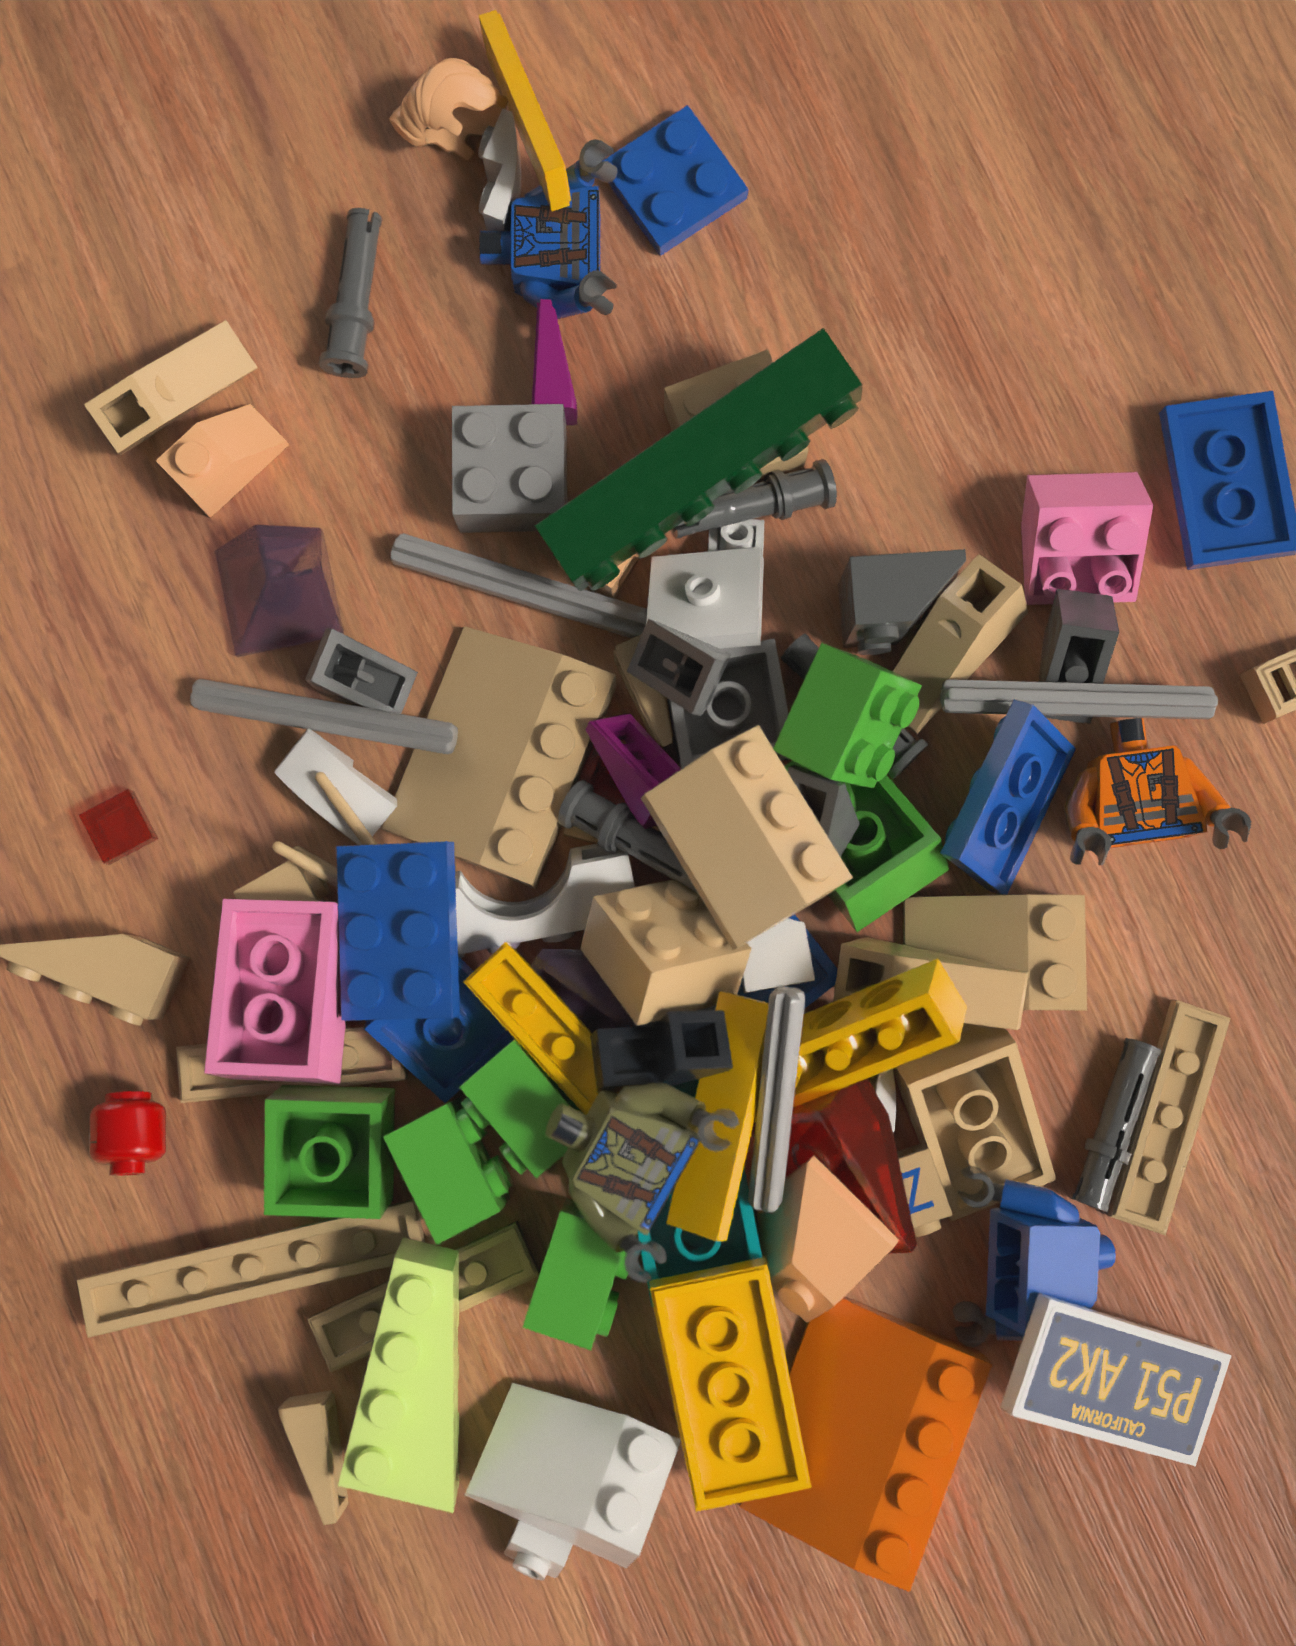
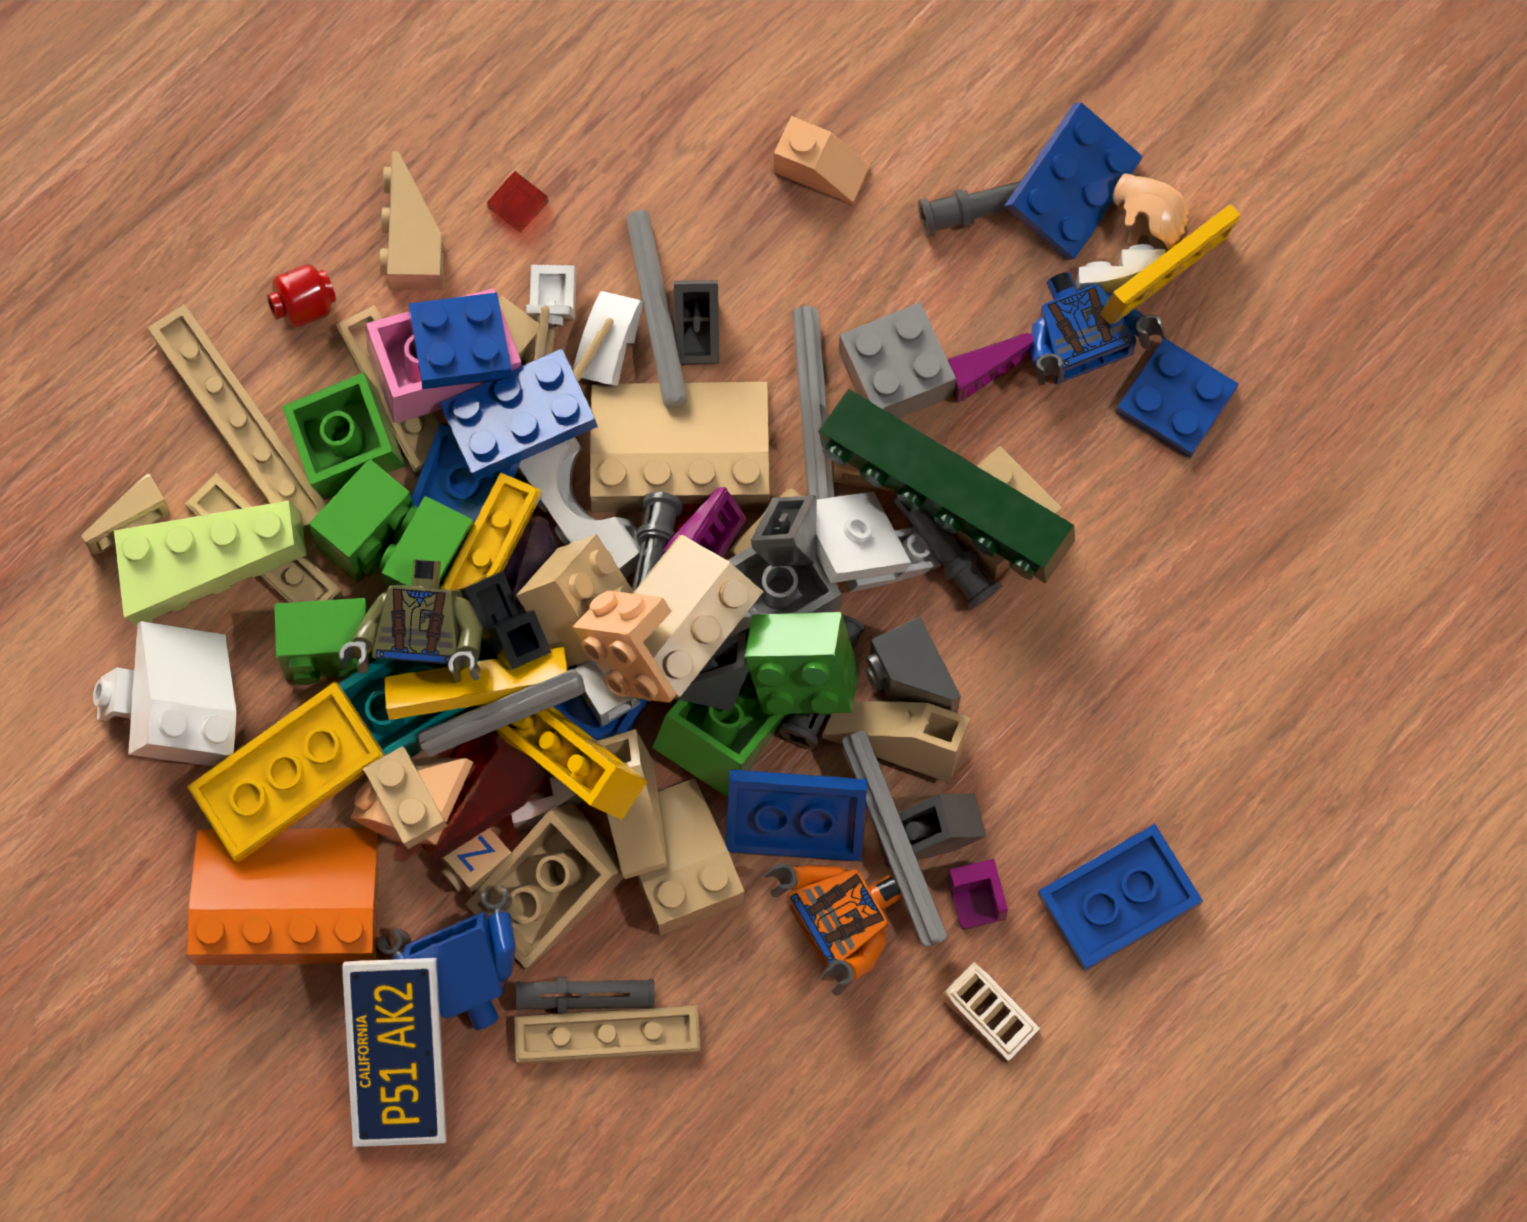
camera: 65 degrees right, 10 degrees down
(170, 387) = (854, 105): tan slope -> none
(252, 829) = (554, 288): none -> white bracket
(277, 588) = (739, 241): slope -> none
(277, 966) = (459, 340): none -> blue plate
(371, 180) = (1073, 181): none -> blue plate
(752, 916) = (614, 639): none -> light nougat bracket
(829, 1256) = (405, 797): none -> tan plate
(1084, 535) = (1026, 800): bright pink slope -> none
(1166, 632) = (977, 894): none -> magenta panel

